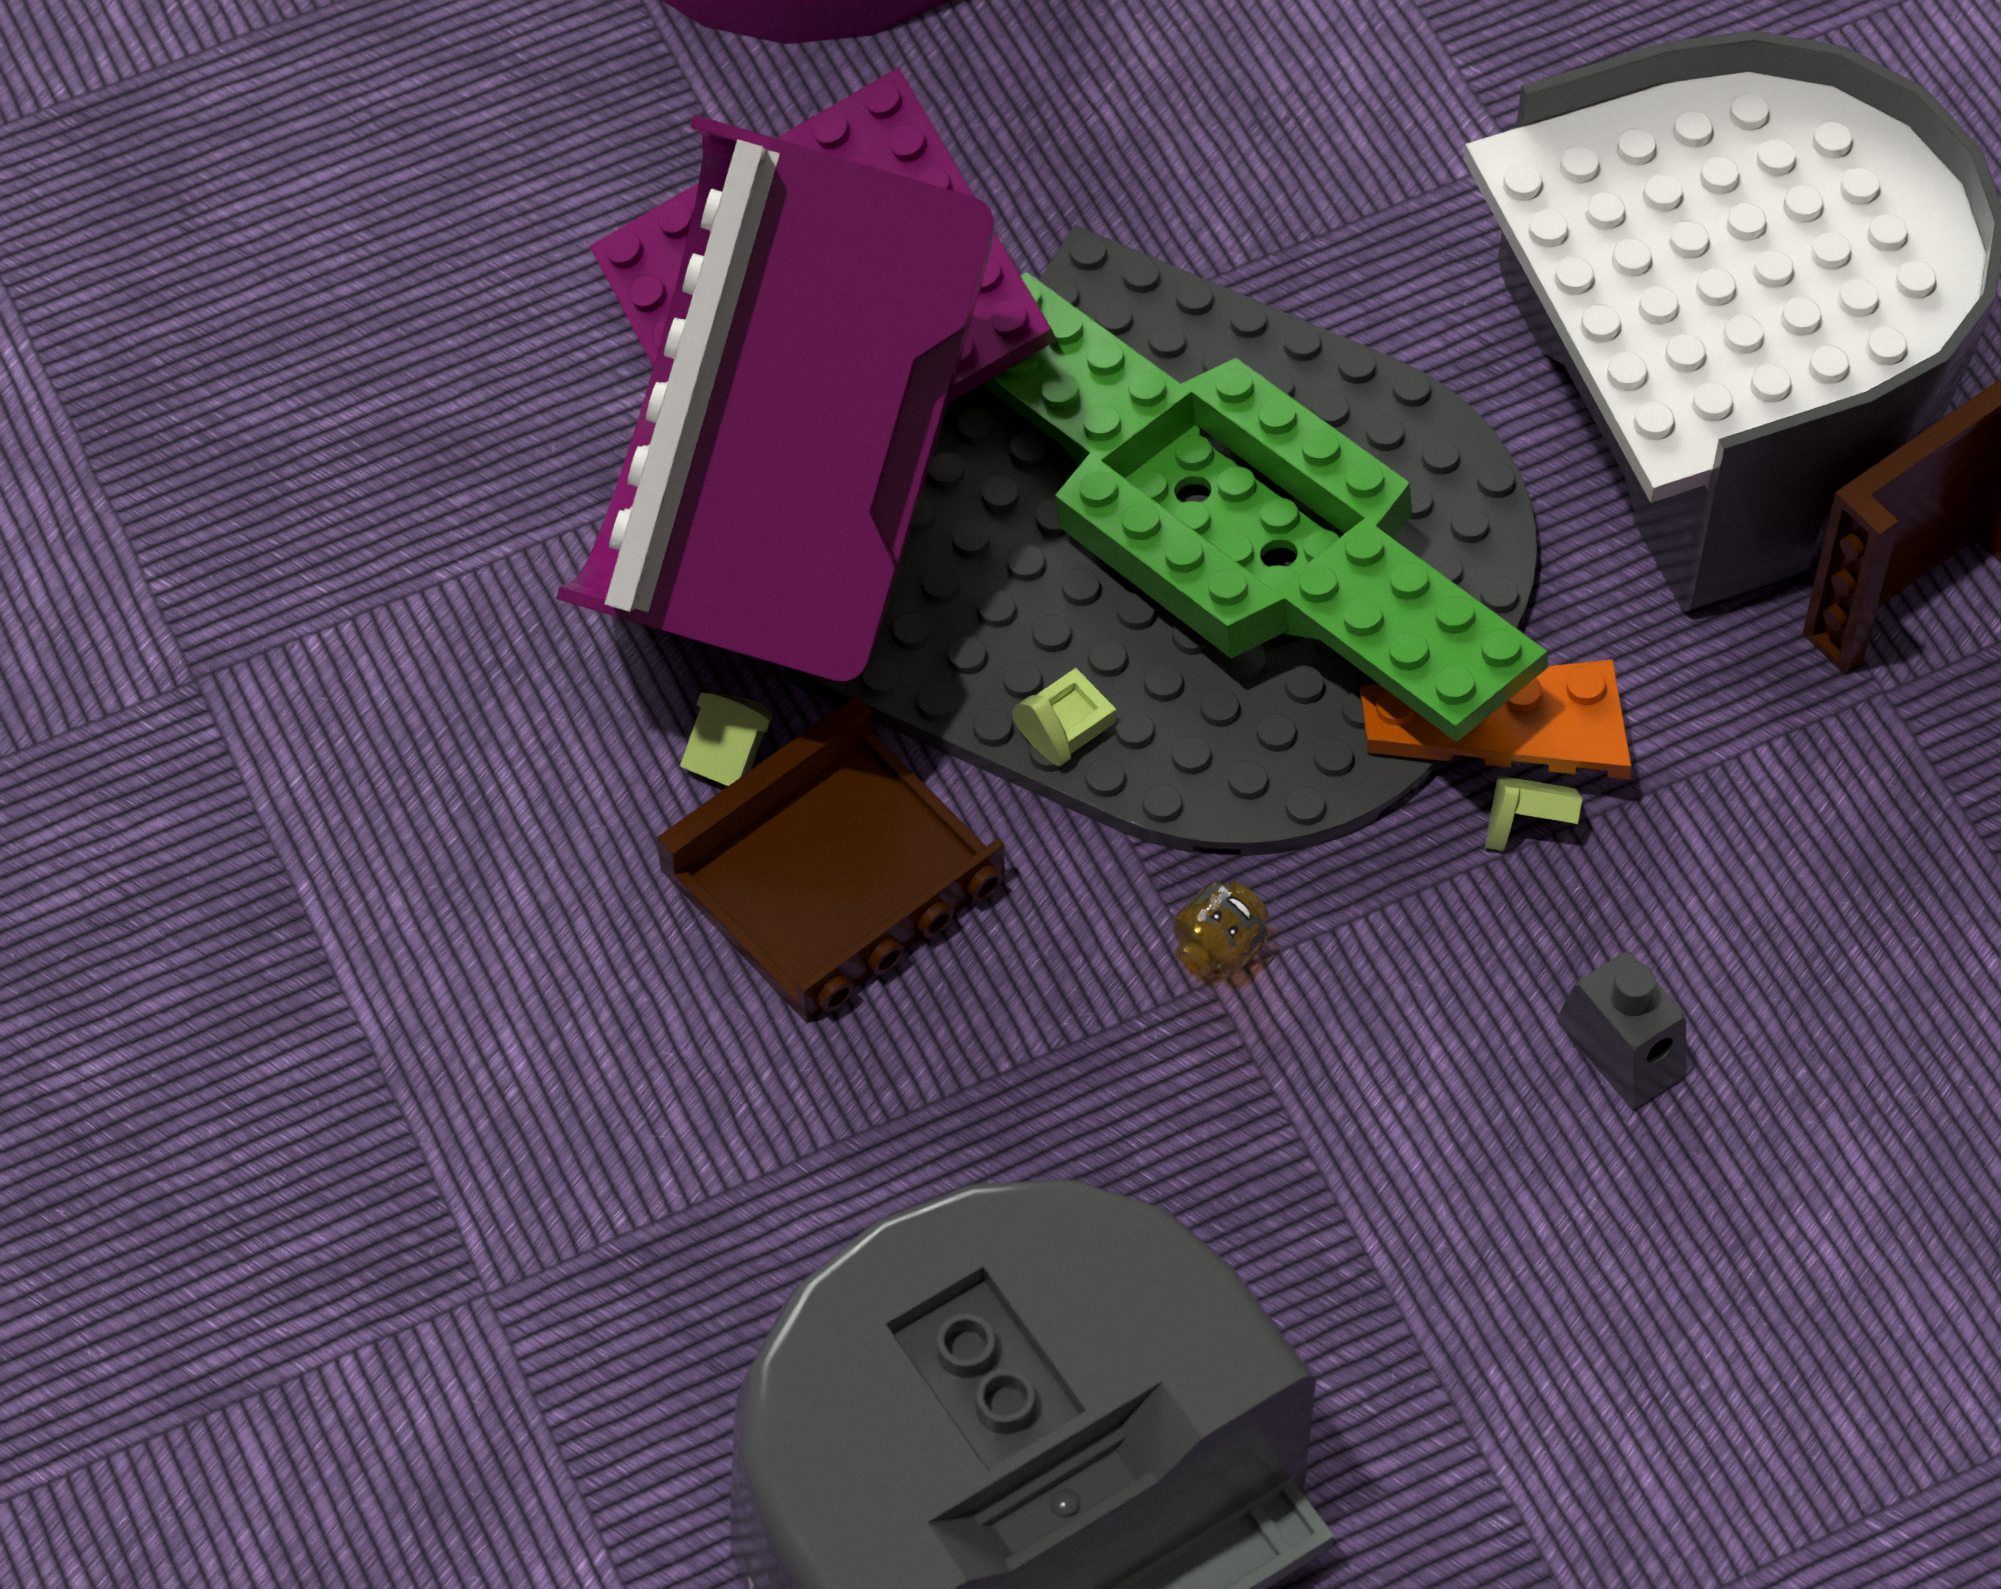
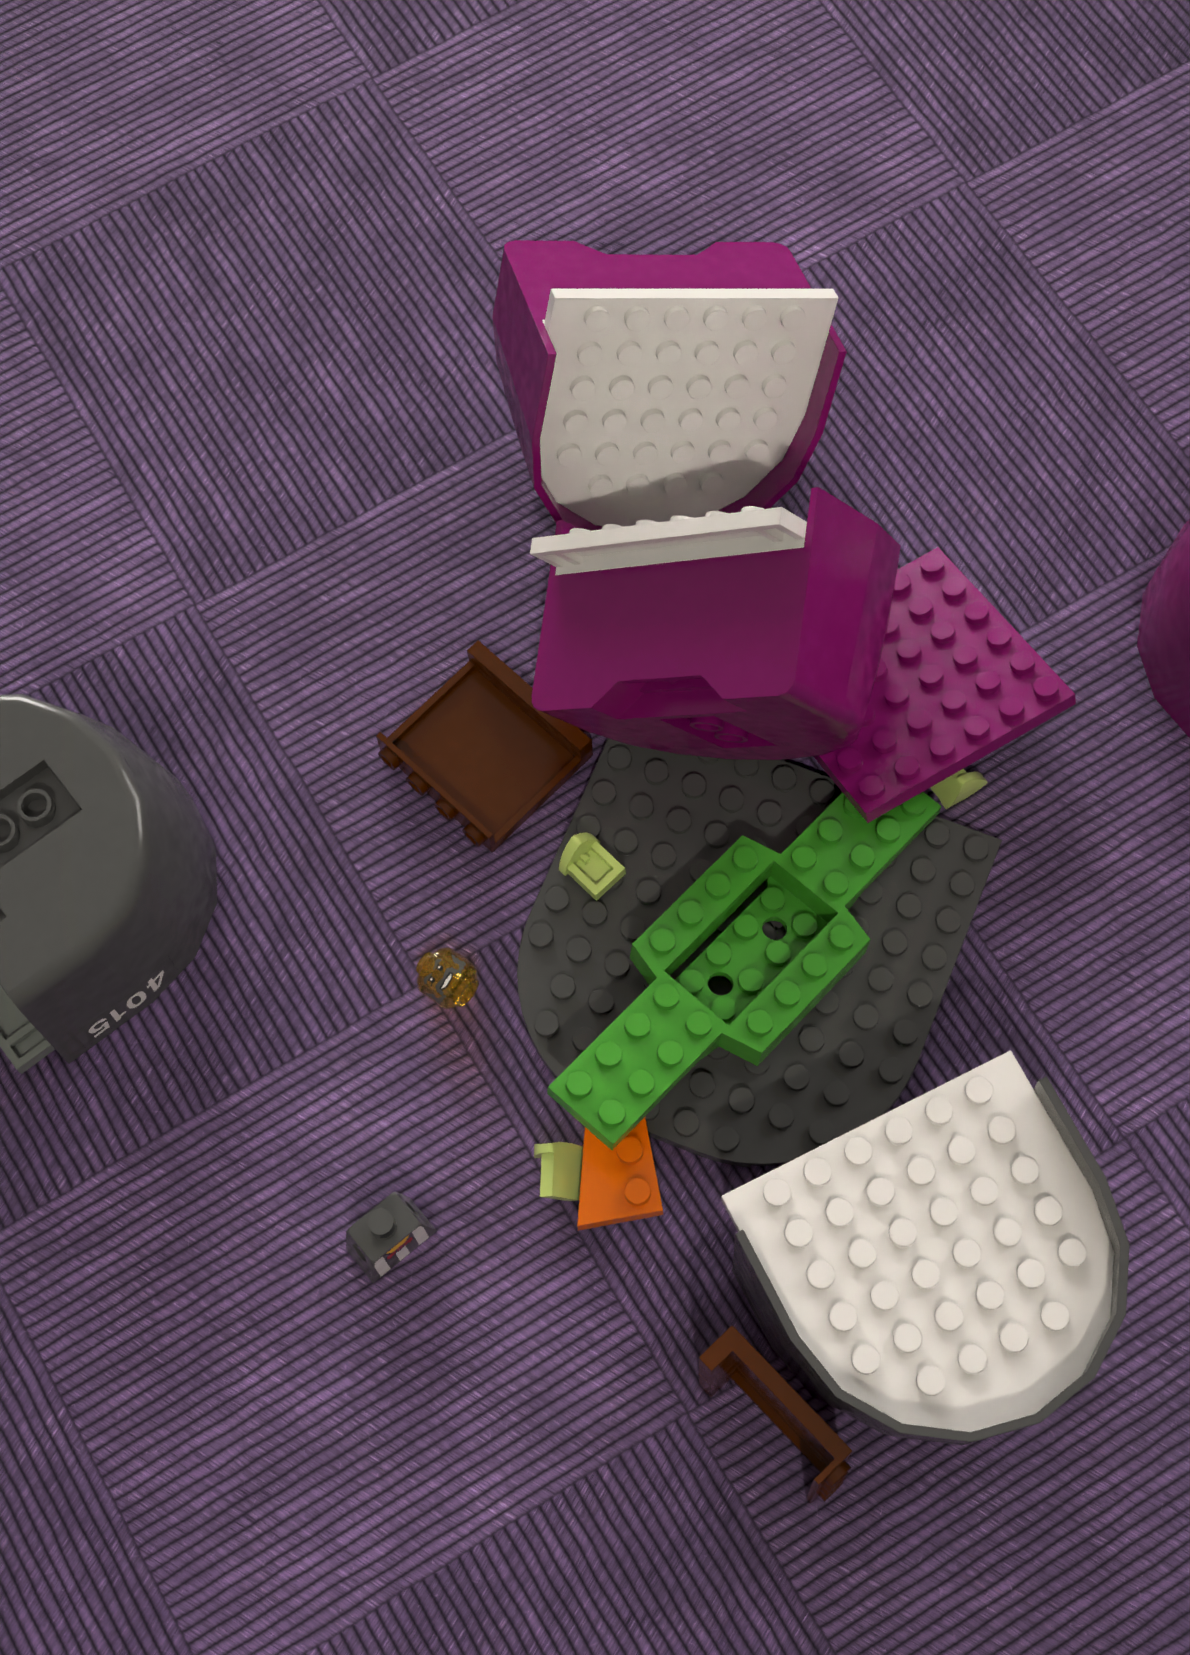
camera: 90 degrees right, 10 degrees up
(298, 473) = (663, 376): none -> white piece

